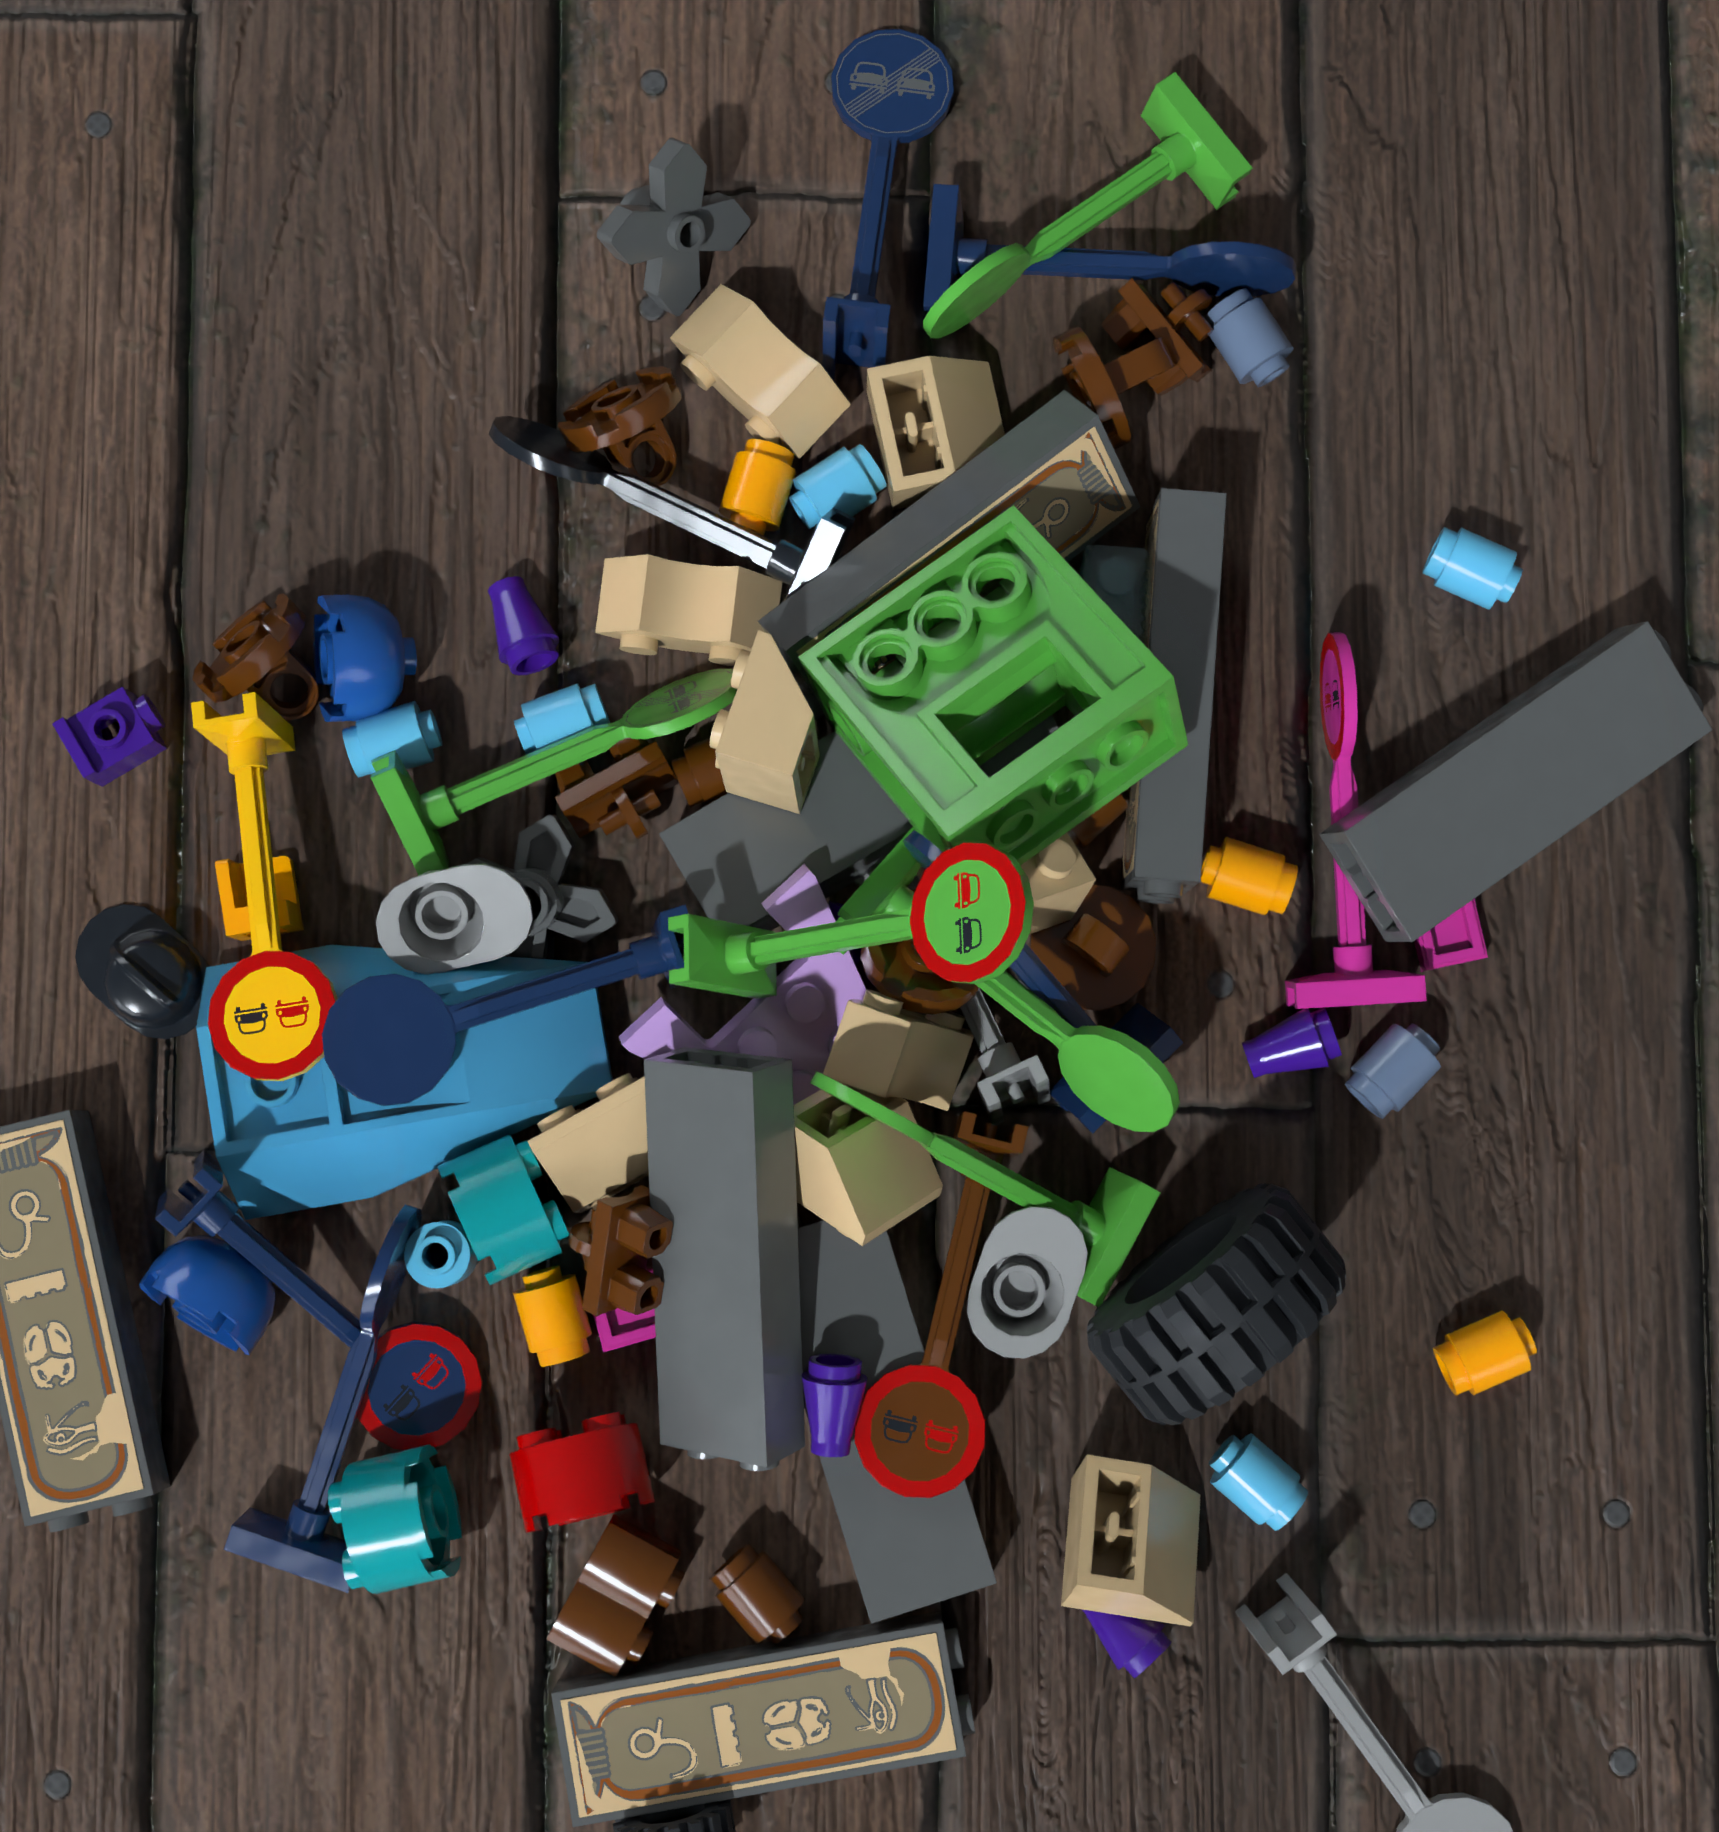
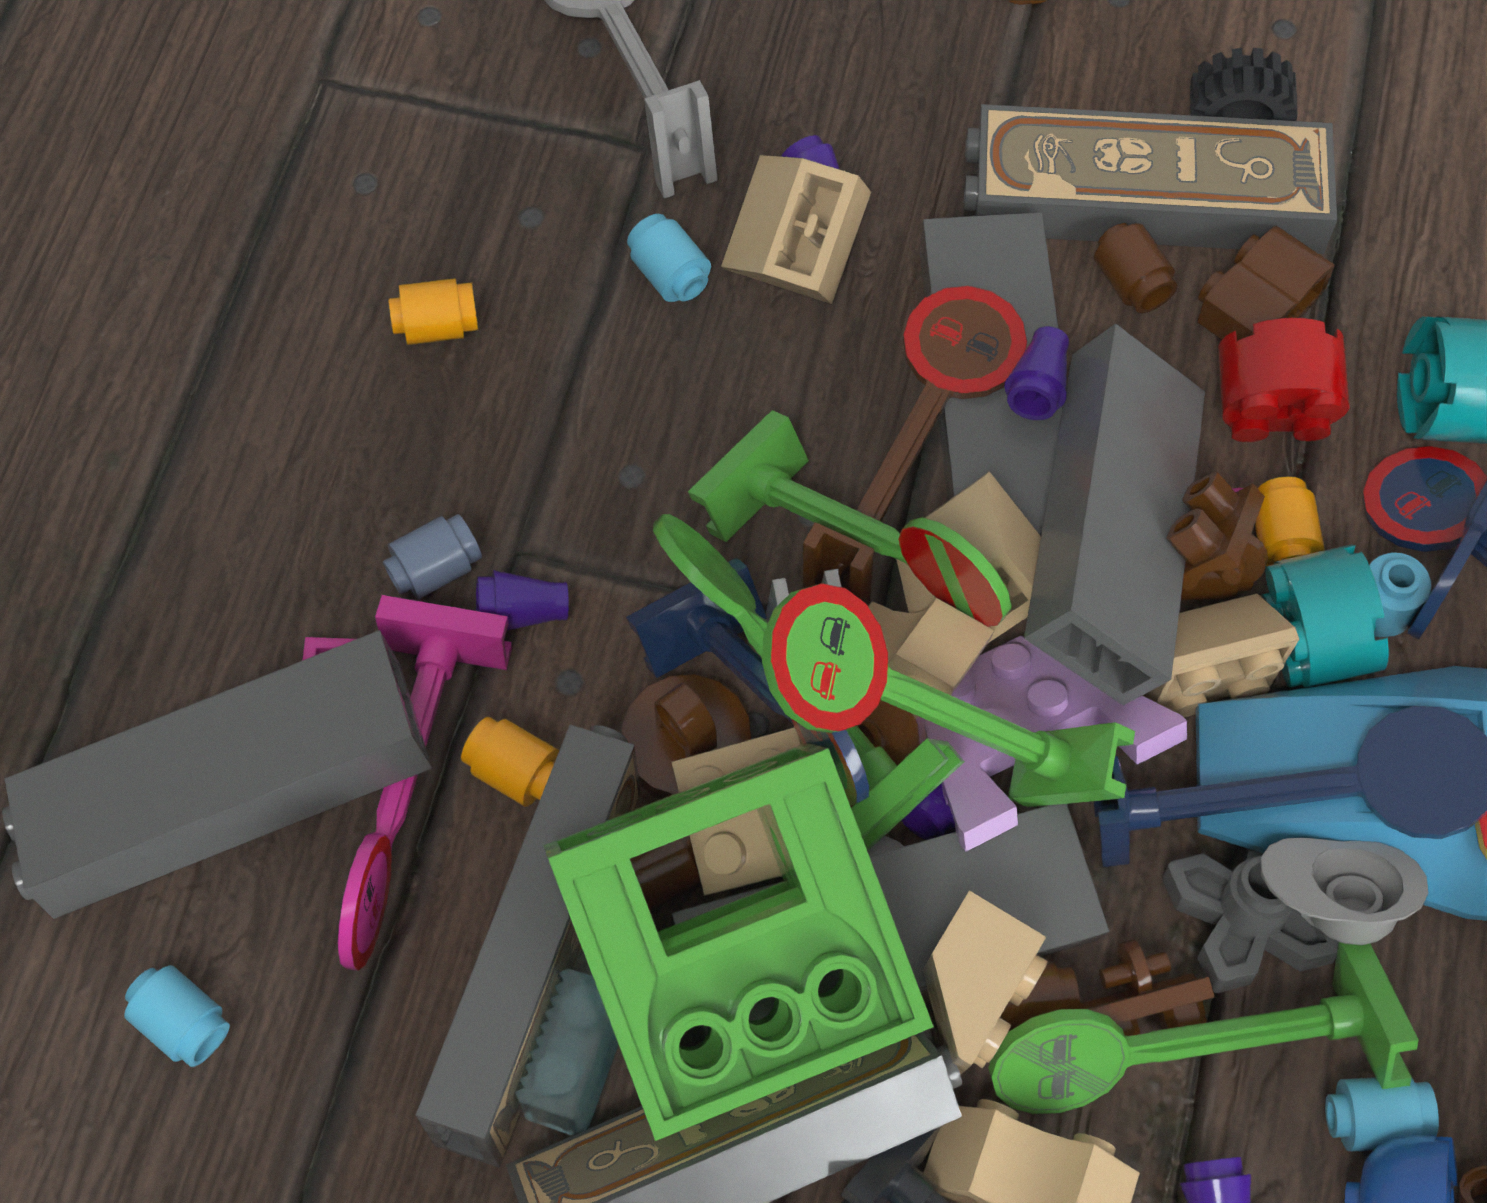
camera: 165 degrees left, 20 degrees down
(559, 716) = (1190, 1089): medium azure brick -> none
(1026, 1281) = (836, 440): light grey piece -> none
(1217, 1305) = (668, 362): black tyre -> none

